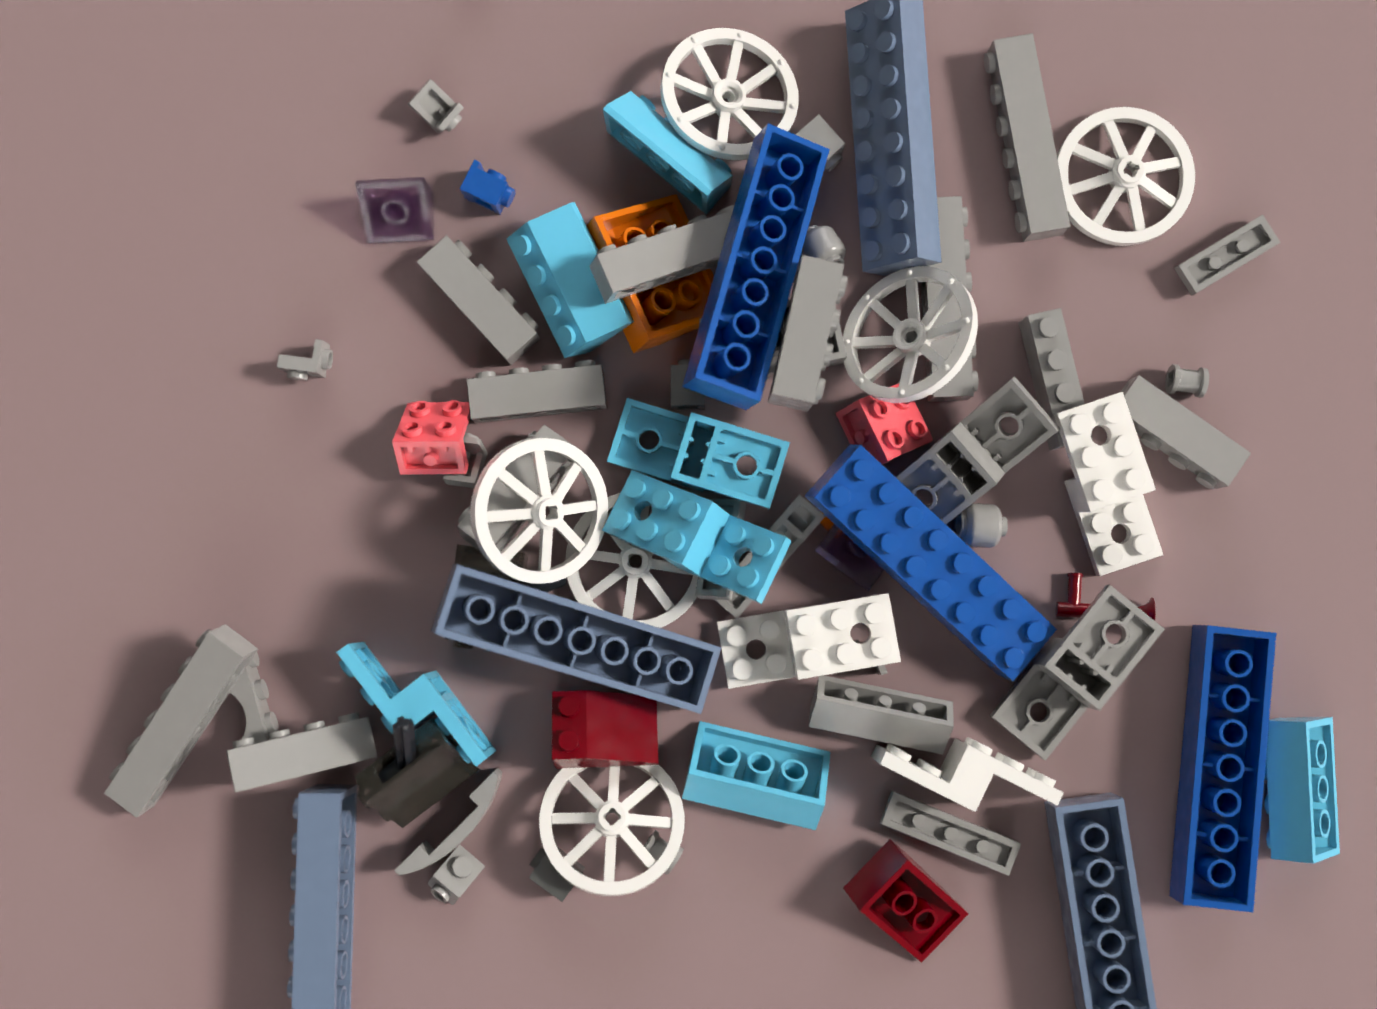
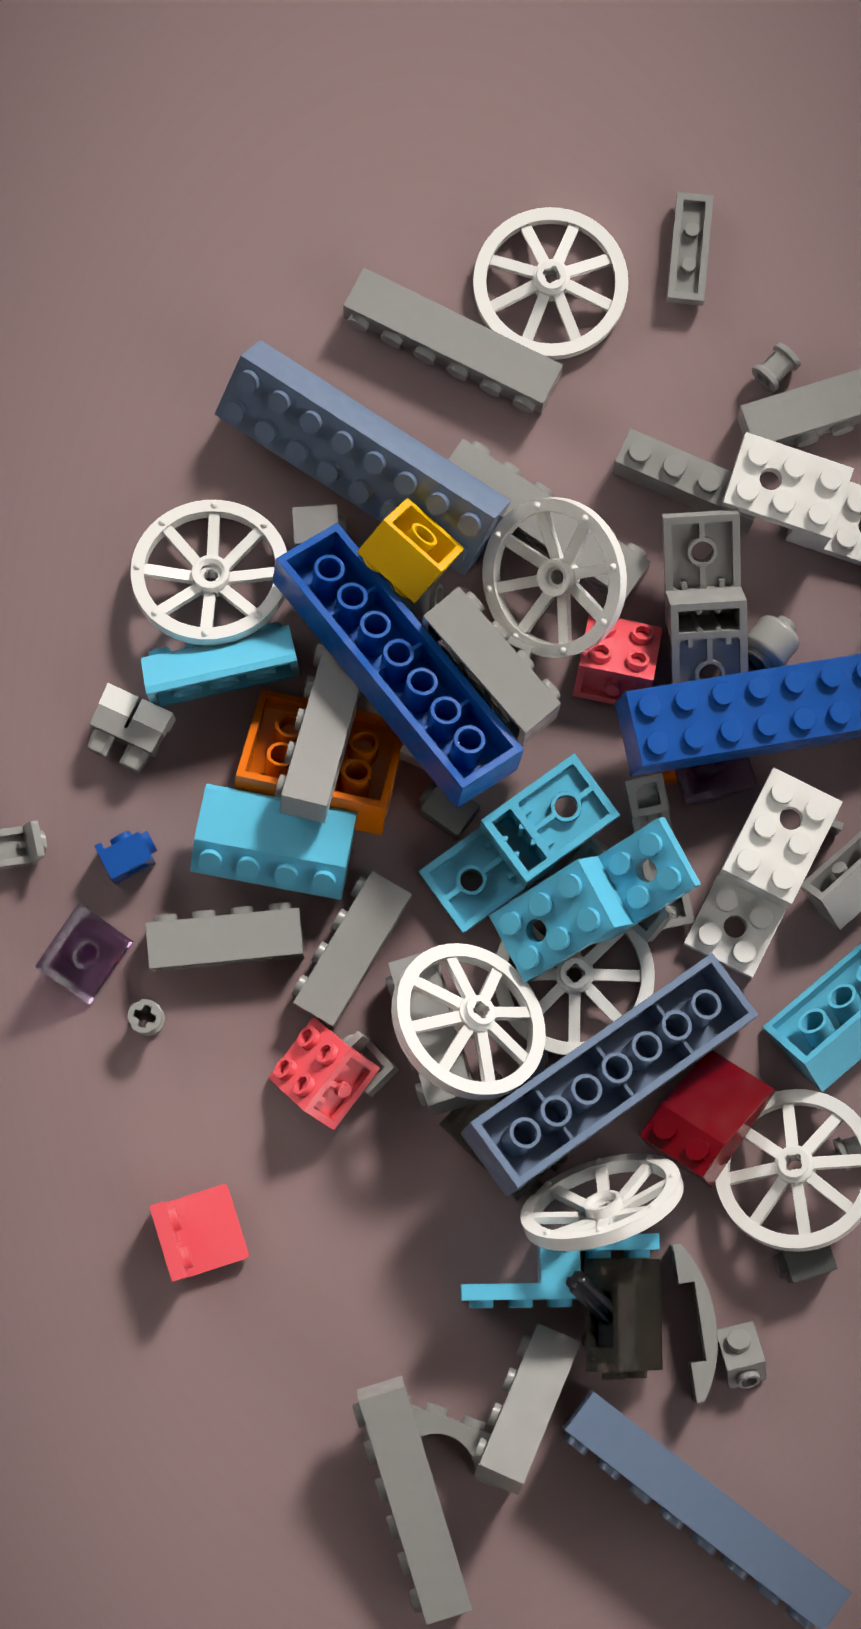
camera: 55 degrees left, 5 degrees down
(261, 433) = (199, 1232): none -> coral bracket
(300, 367) = (163, 1151): light grey bracket -> none
(375, 284) = (142, 1007): none -> light grey bush
(477, 706) = (606, 1214): none -> white wheel
(583, 122) = (129, 722): none -> light grey hips
(847, 214) = (410, 550): none -> yellow brick

